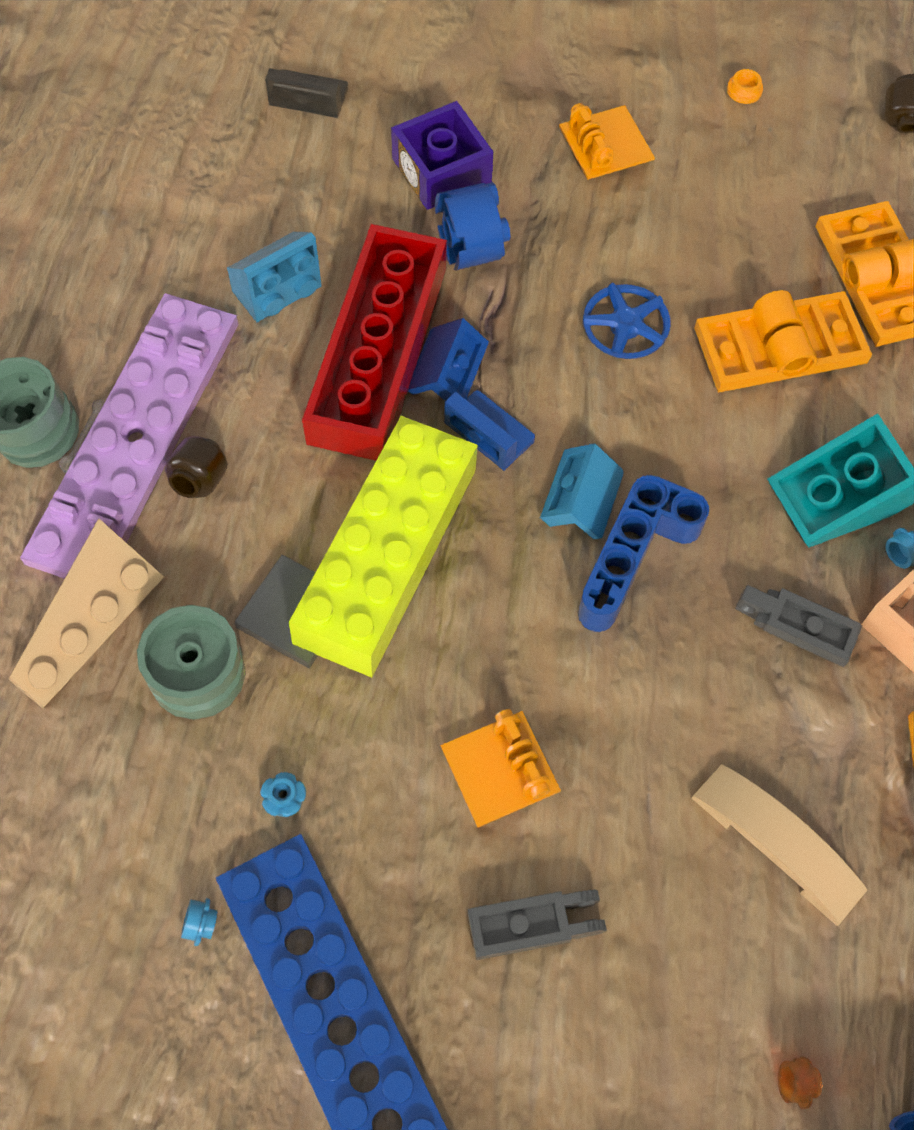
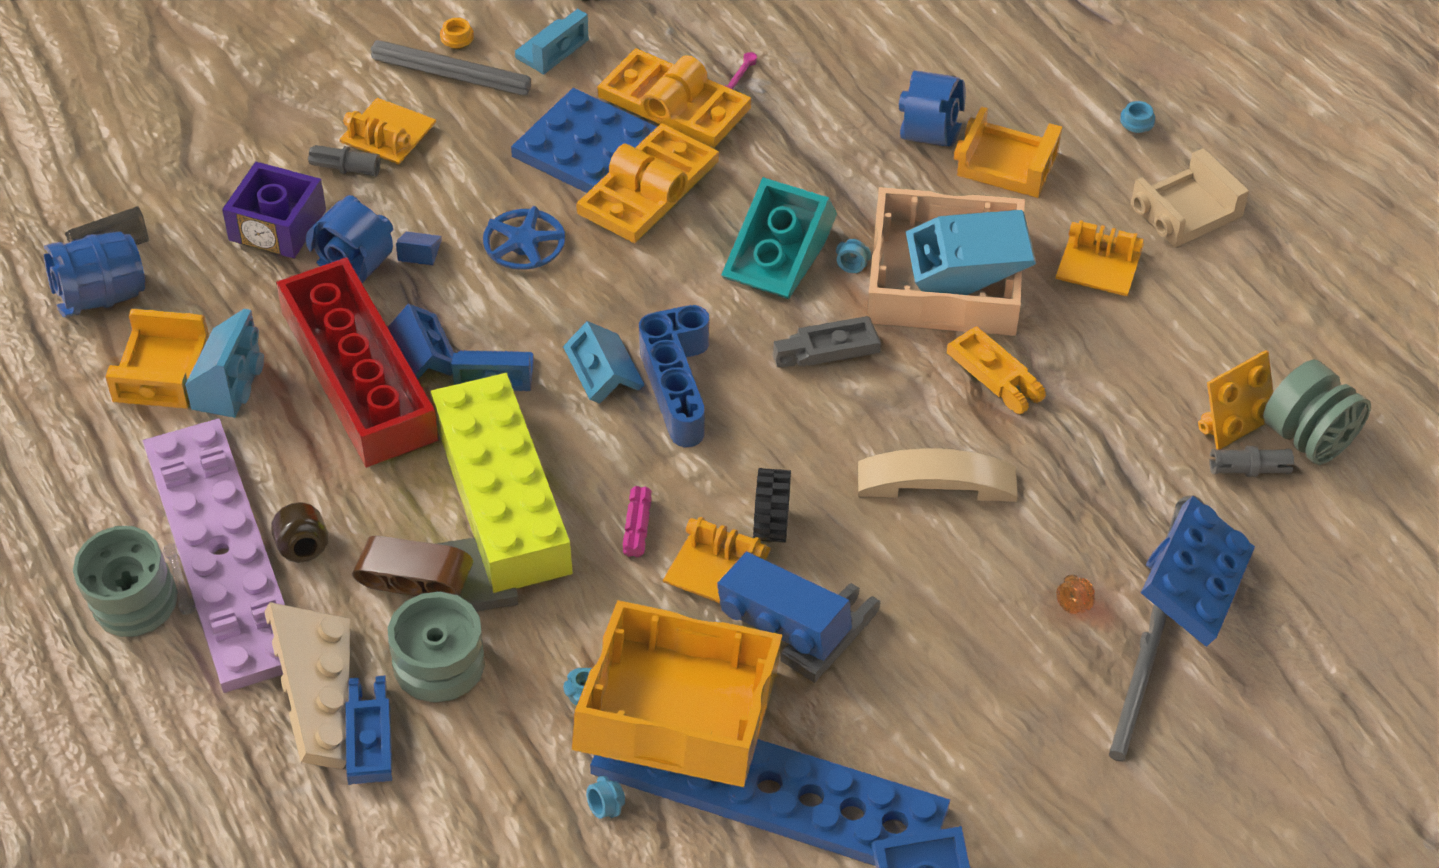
camera: 40 degrees left, 15 degrees down
(81, 694) = (368, 734): none -> blue hinge
(239, 226) = (158, 358): none -> light orange panel
(244, 572) = (412, 566): none -> reddish brown beam
(255, 118) = (94, 271): none -> blue piece
(330, 882) = (677, 693): none -> light orange tile
(471, 669) = (637, 521): none -> dark pink axle
(502, 871) = (785, 604): none -> blue brick
(532, 268) = (418, 248): none -> blue slope
(546, 146) = (345, 160): none -> dark grey axle
(589, 754) = (772, 505): none -> black tyre
(713, 117) = (451, 67): none -> dark grey axle
(762, 255) = (579, 139): none -> blue plate
(823, 149) = (555, 42): none -> dark azure panel

